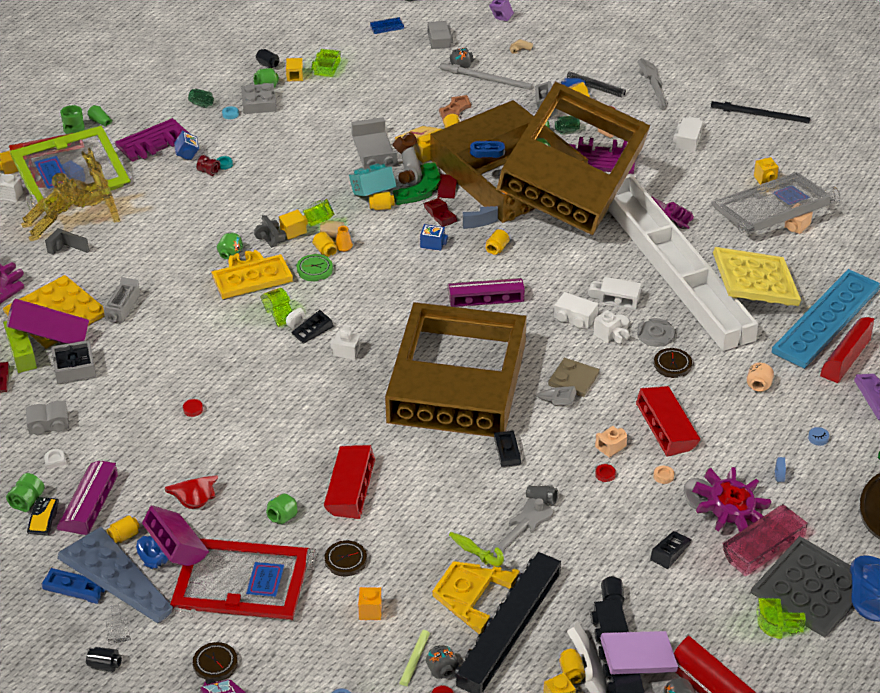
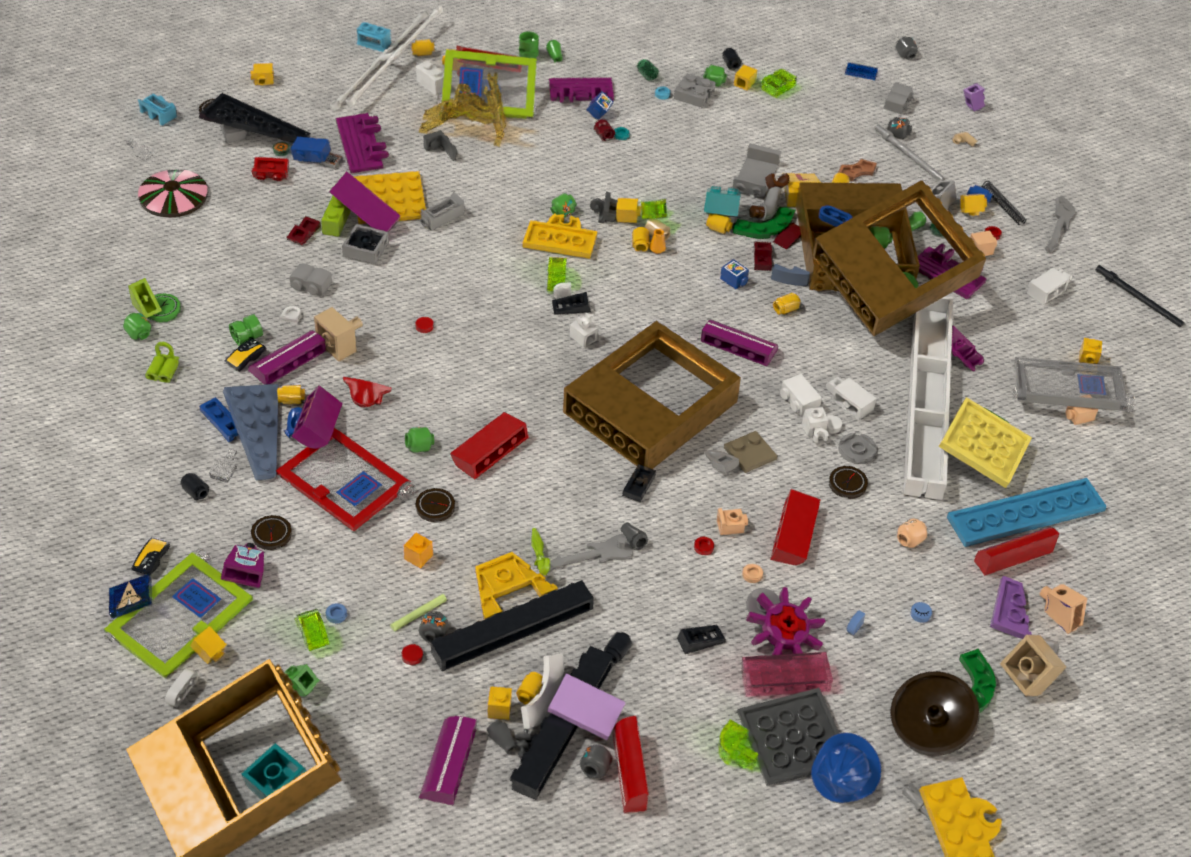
camera: 30 degrees right, 5 degrees up
(125, 450) = (337, 332): none -> tan brick
(314, 267) = (617, 255): bright green tile -> none

